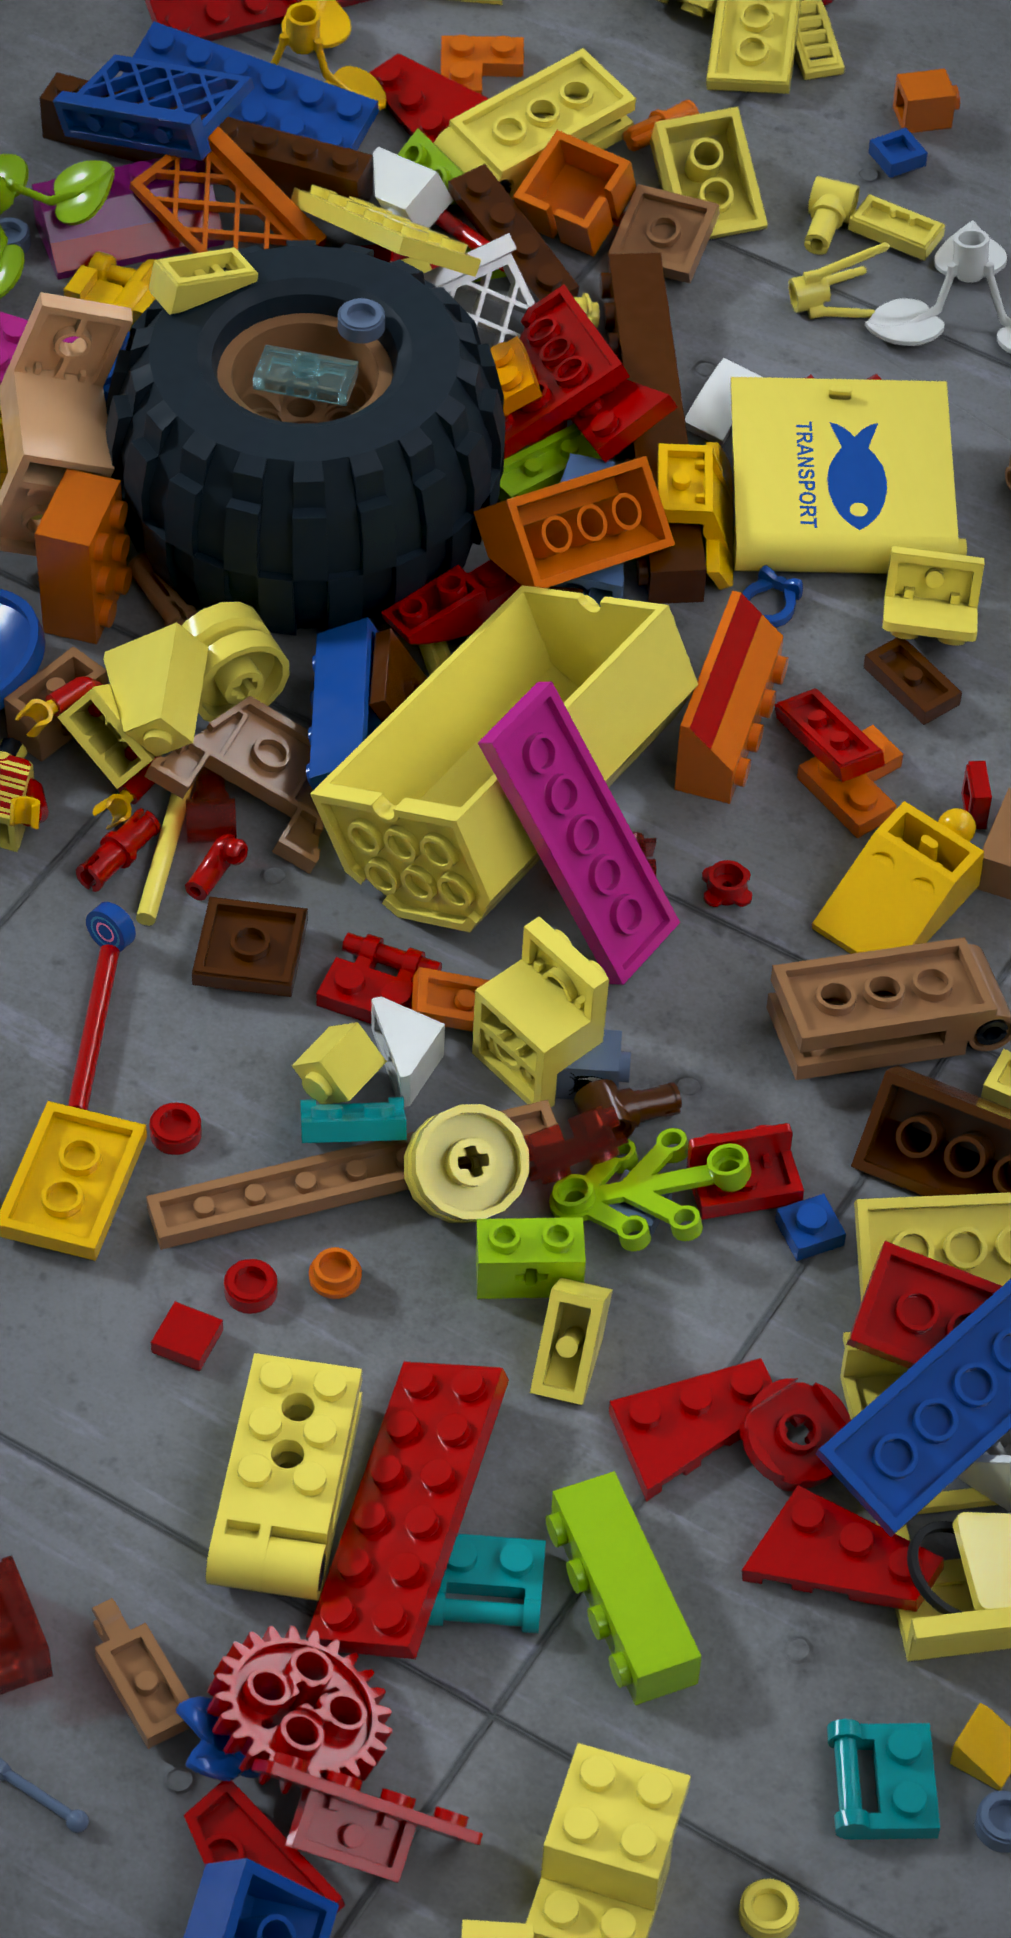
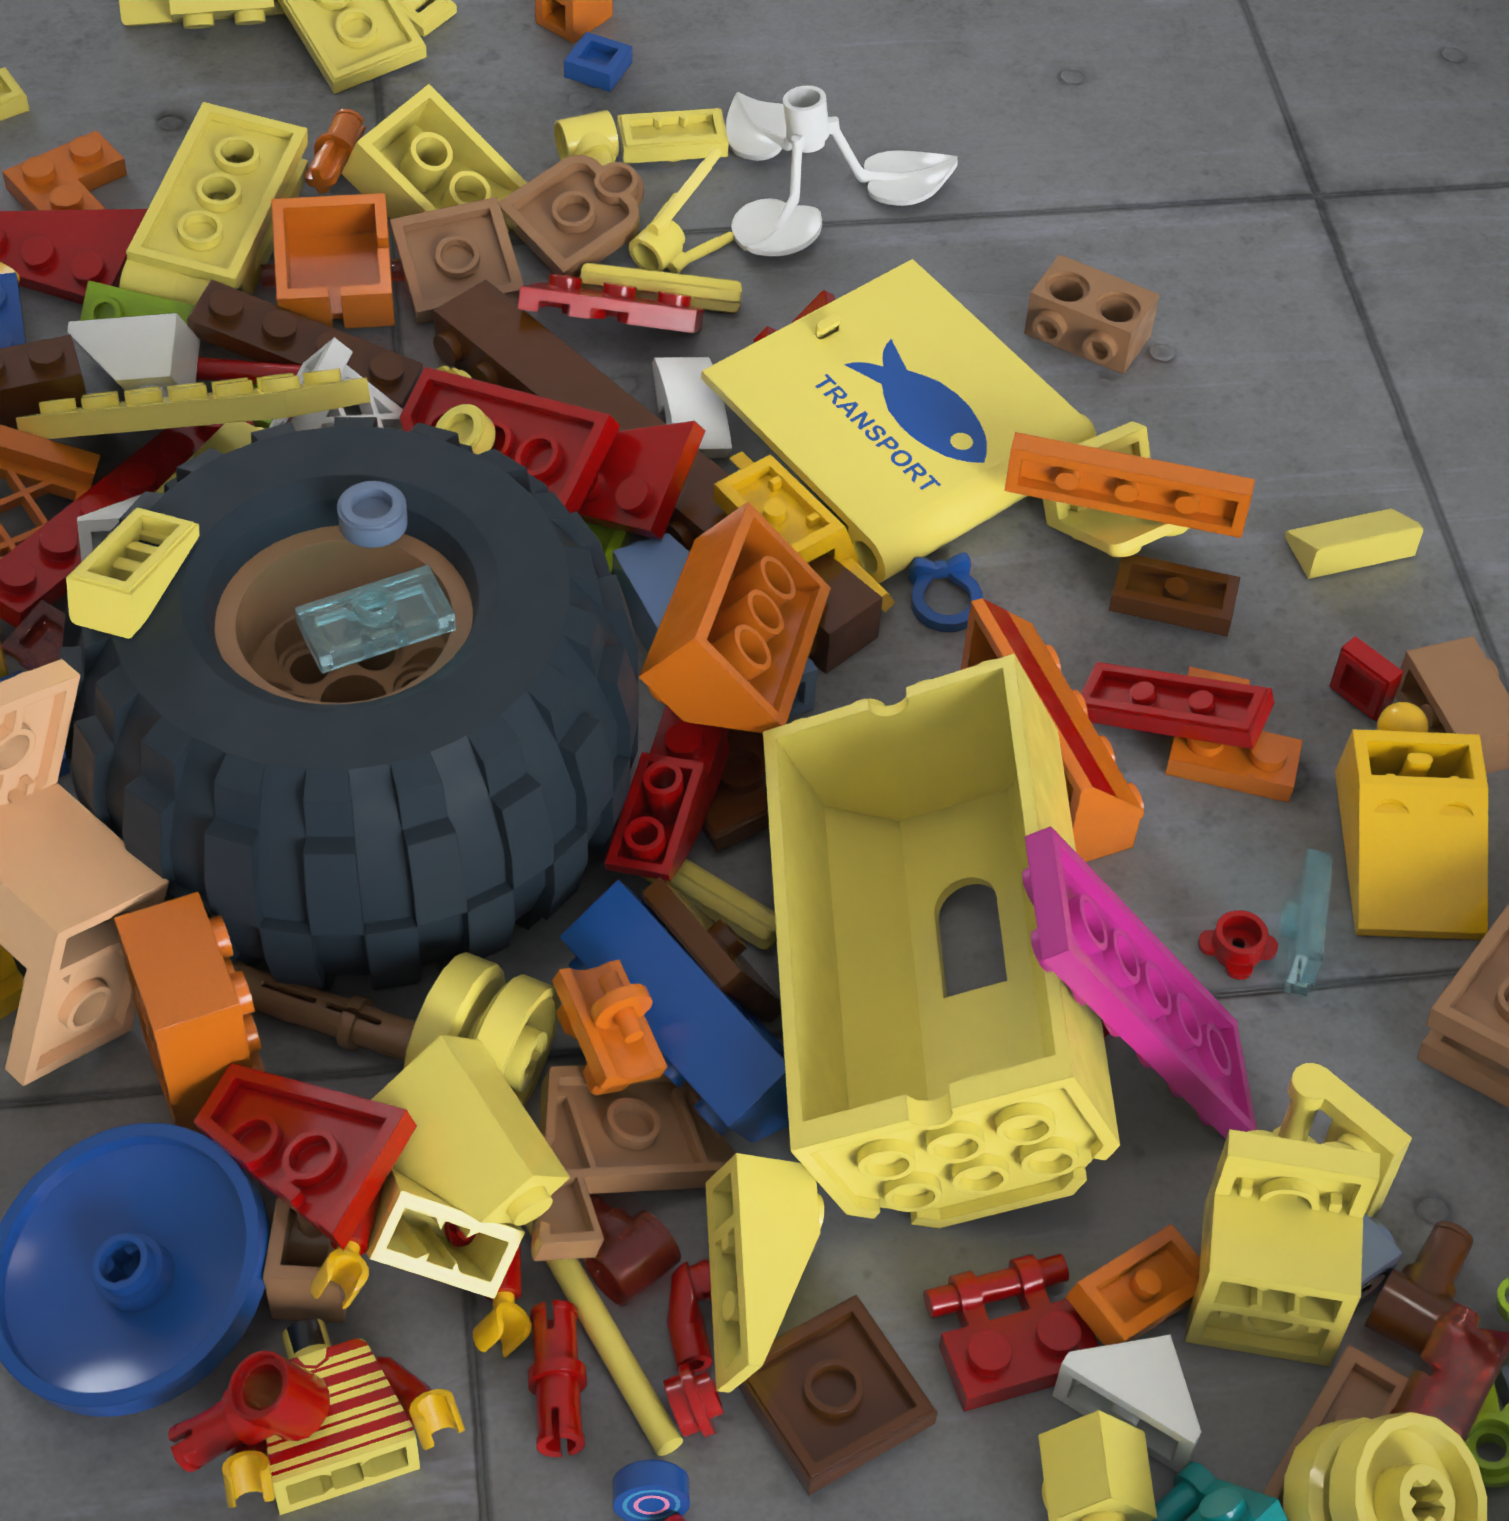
camera: 40 degrees left, 0 degrees up
(75, 644) = (307, 1144): none -> red wing
(173, 902) = (693, 1401): none -> red plate
(267, 849) = (759, 1239): none -> light yellow slope
(291, 689) = (610, 1026): none -> orange hips
(542, 336) = (471, 425): none -> light yellow tile
(644, 999) = (1353, 1122): none -> light yellow plate
(712, 295) = (617, 300): none -> wing
(773, 243) = (576, 212): none -> medium nougat plate
(777, 896) = (1305, 921): none -> clear light blue plate
(786, 321) = (706, 292): none -> light yellow axle
(922, 587) = (1129, 485): none -> orange plate

